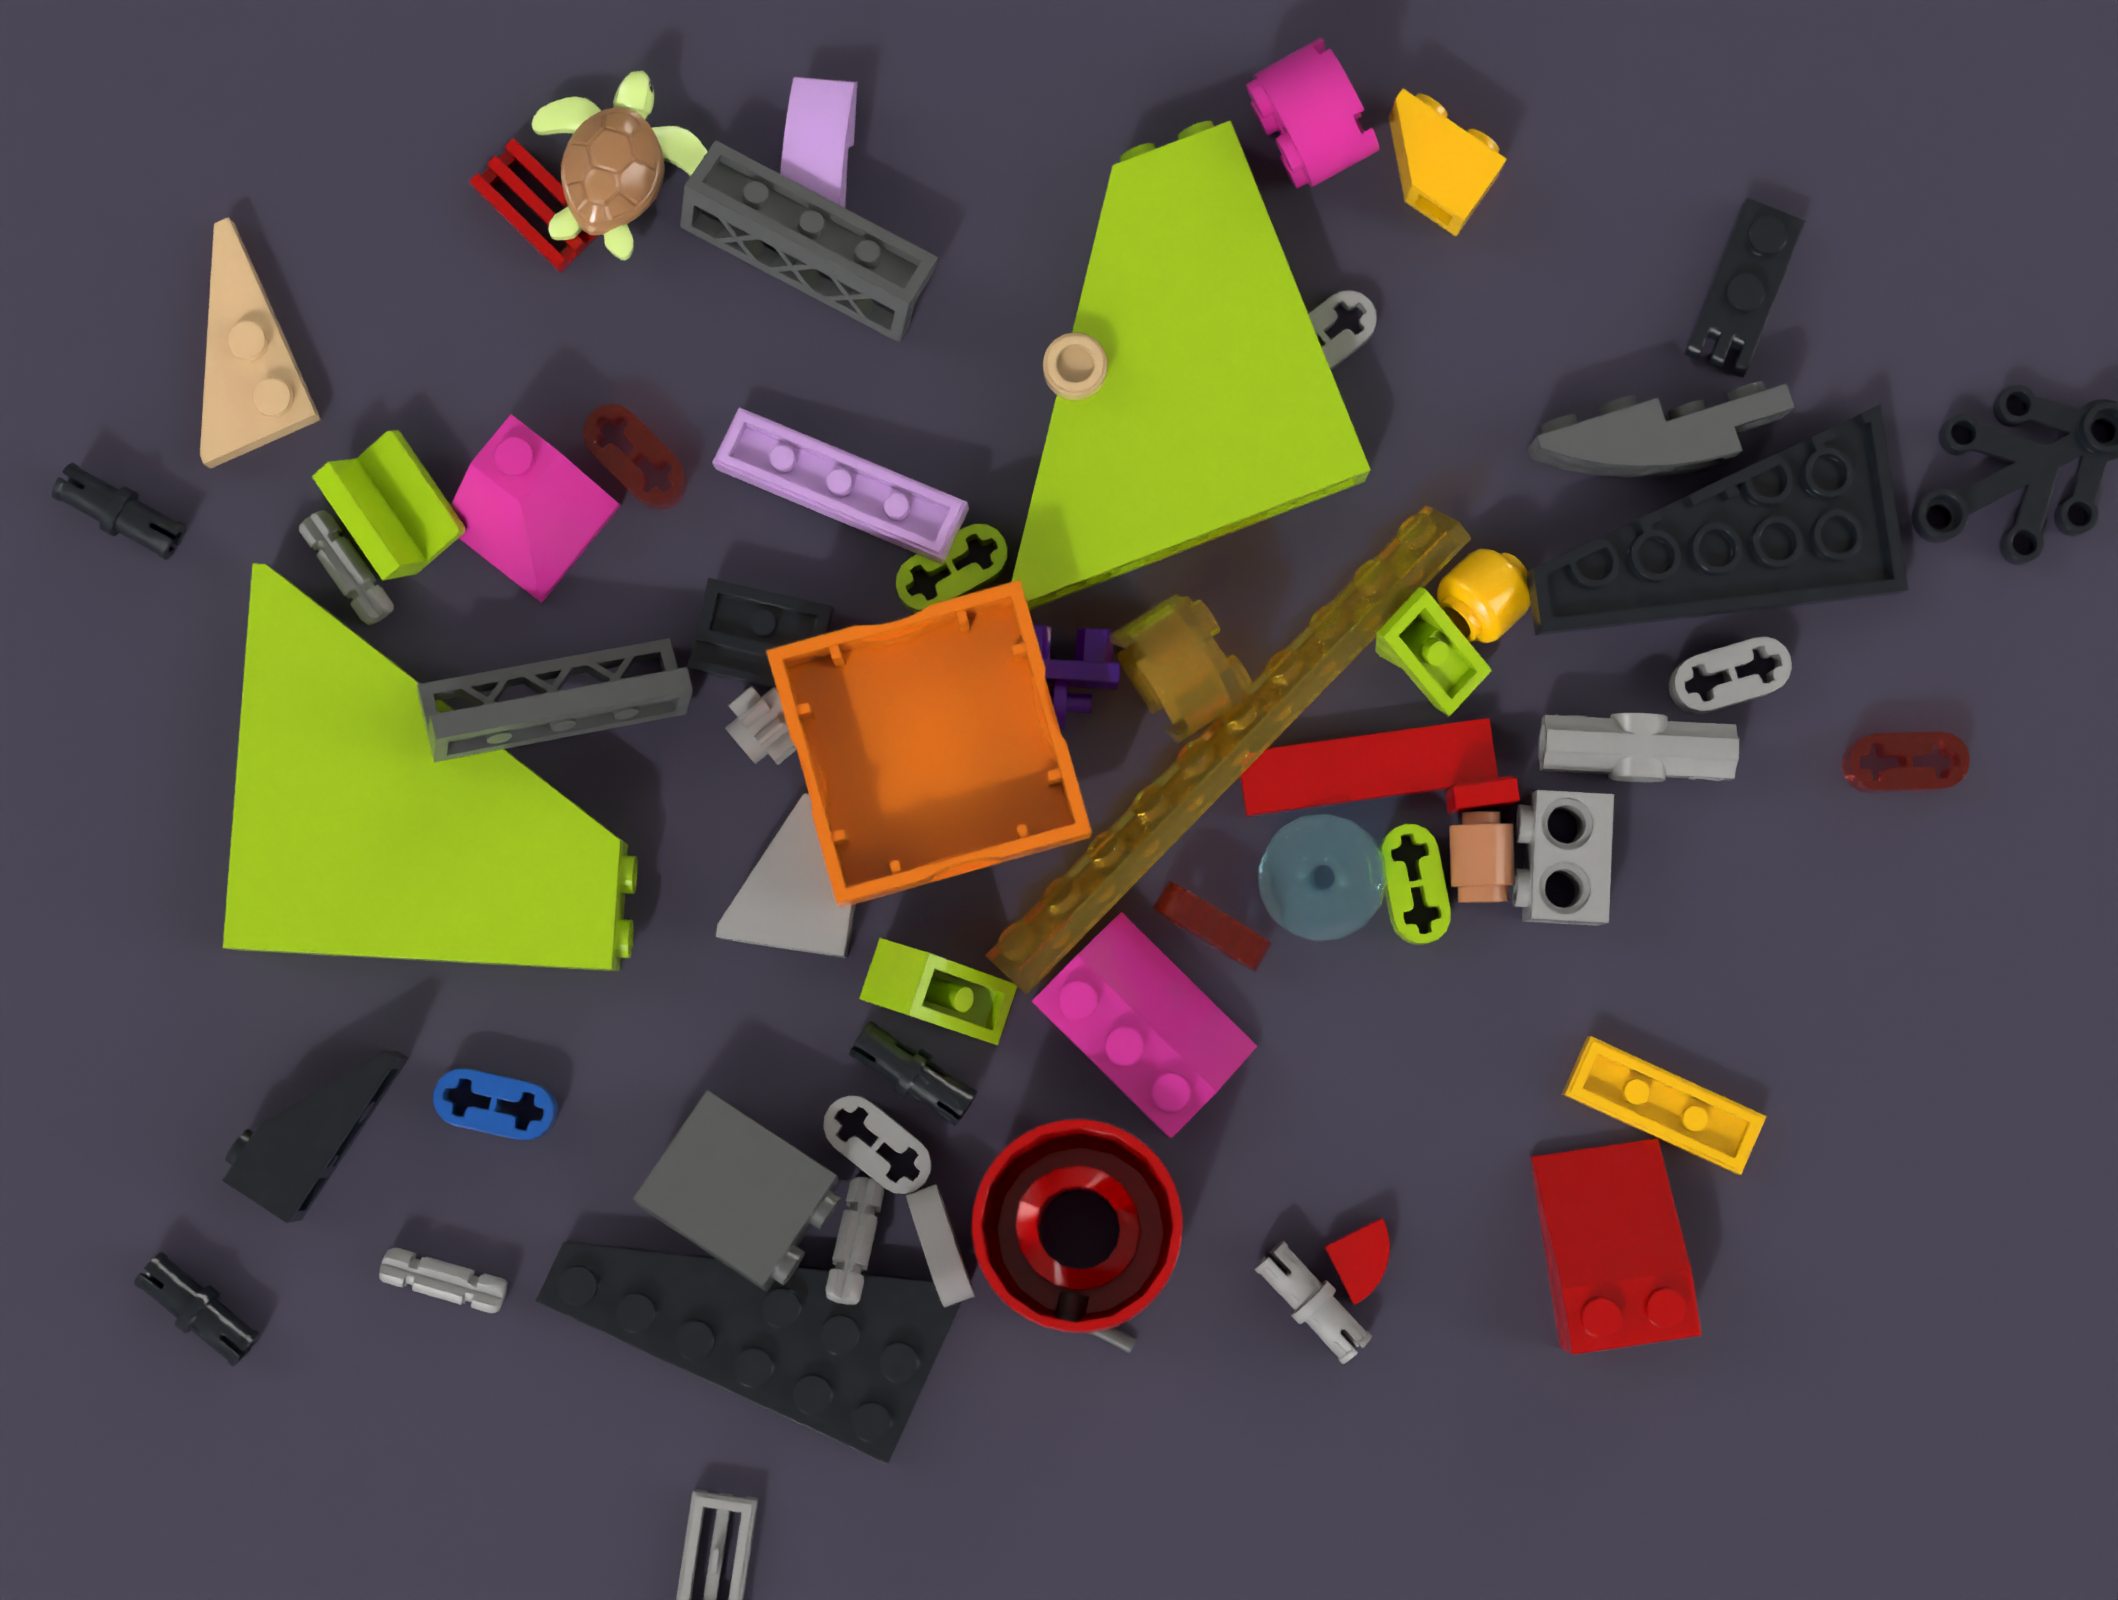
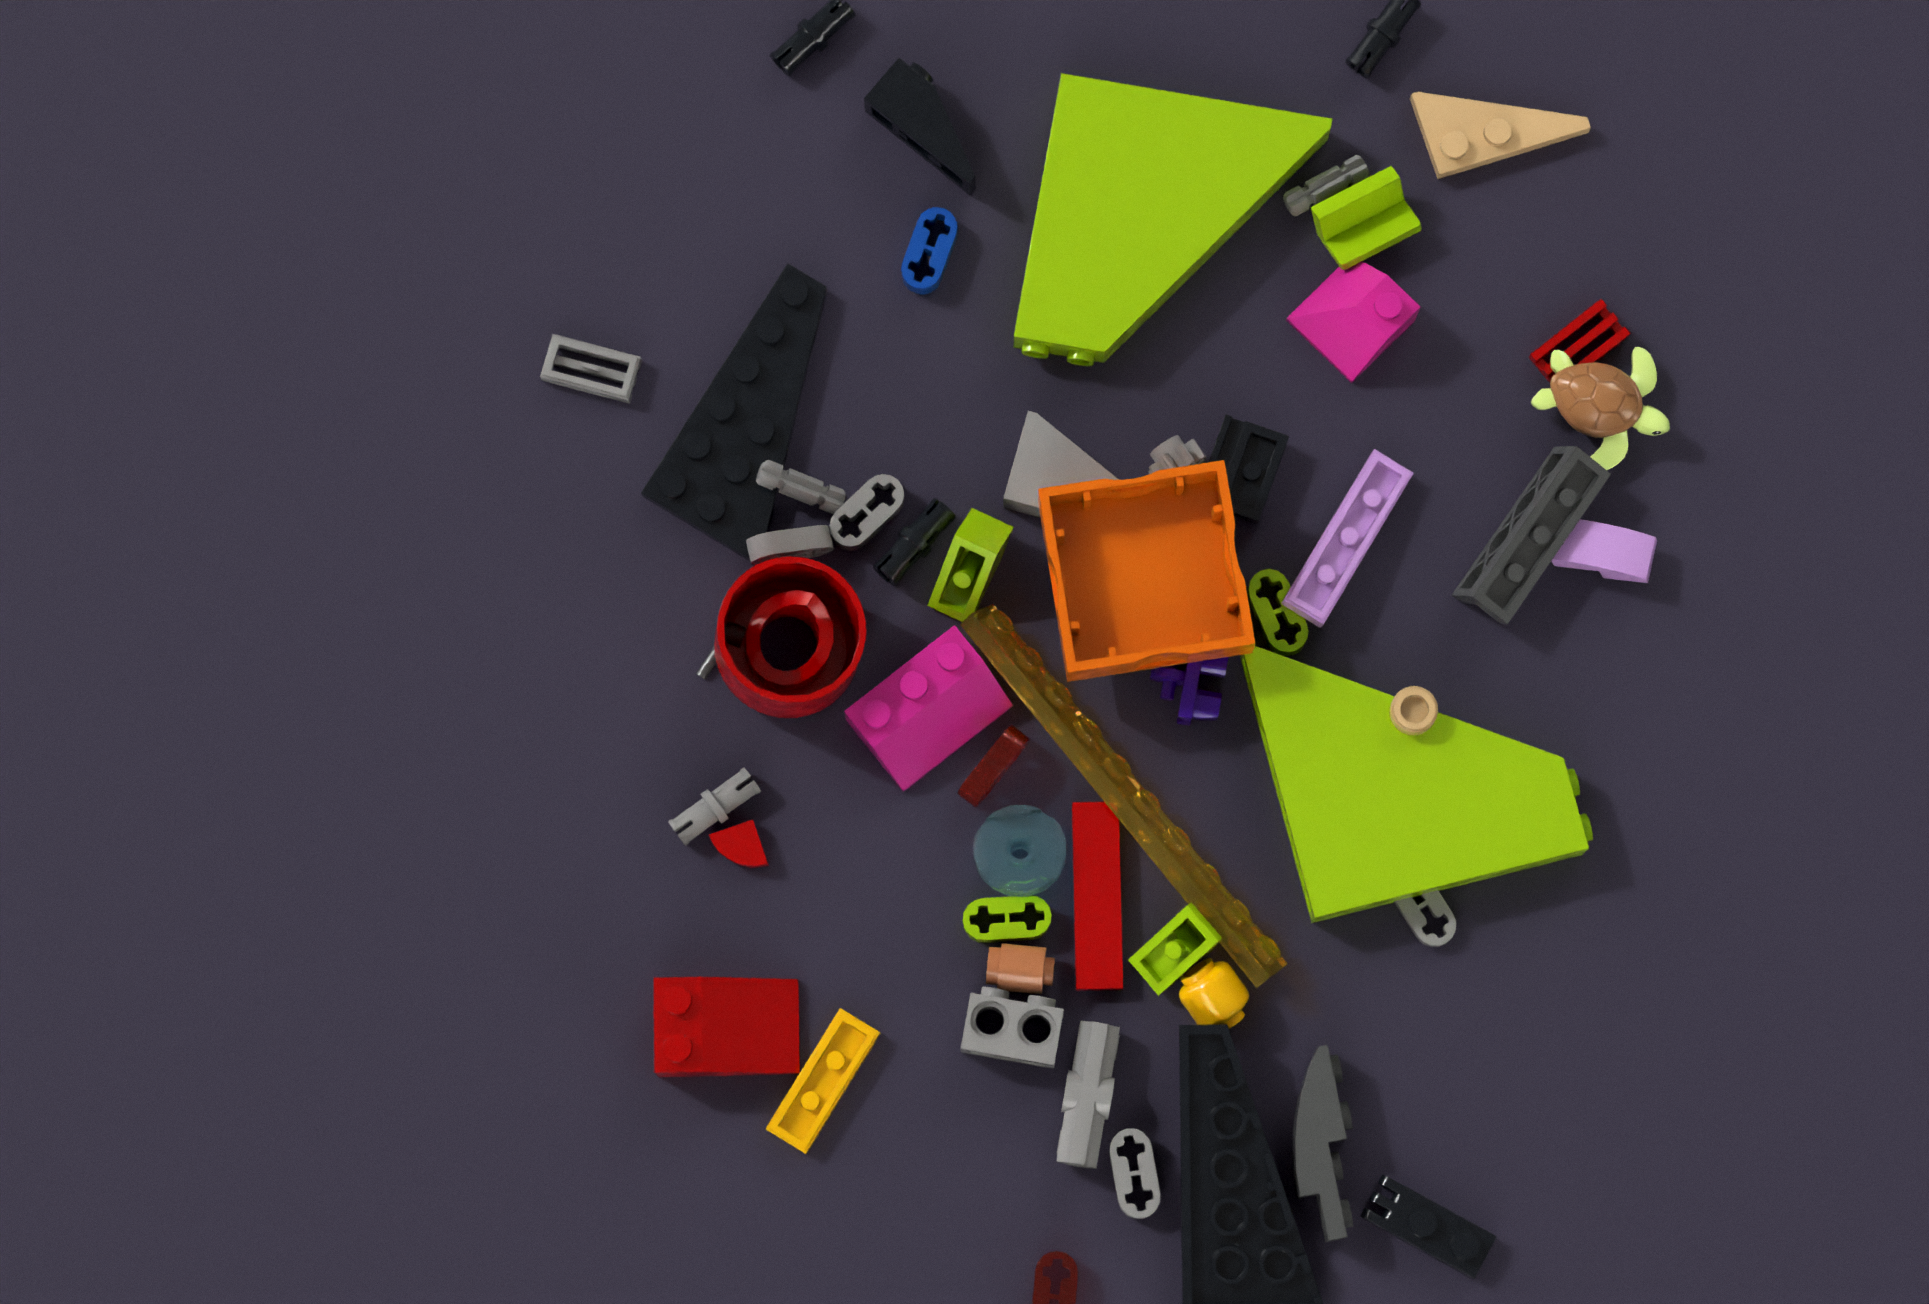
camera: 105 degrees right, 5 degrees down
(443, 1280) = (810, 202): light grey axle -> none
(554, 712) = (1200, 317): dark grey fence -> none
(624, 466) = (1391, 404): clear red beam -> none
(739, 1192) = (844, 409): dark grey brick -> none
(1180, 665) = (1185, 760): clear yellow brick -> none
(1314, 113) = (1588, 910): dark pink brick -> none
(1440, 163) = (1542, 1005): yellow slope -> none
(1482, 794) = (1066, 974): red tile -> none

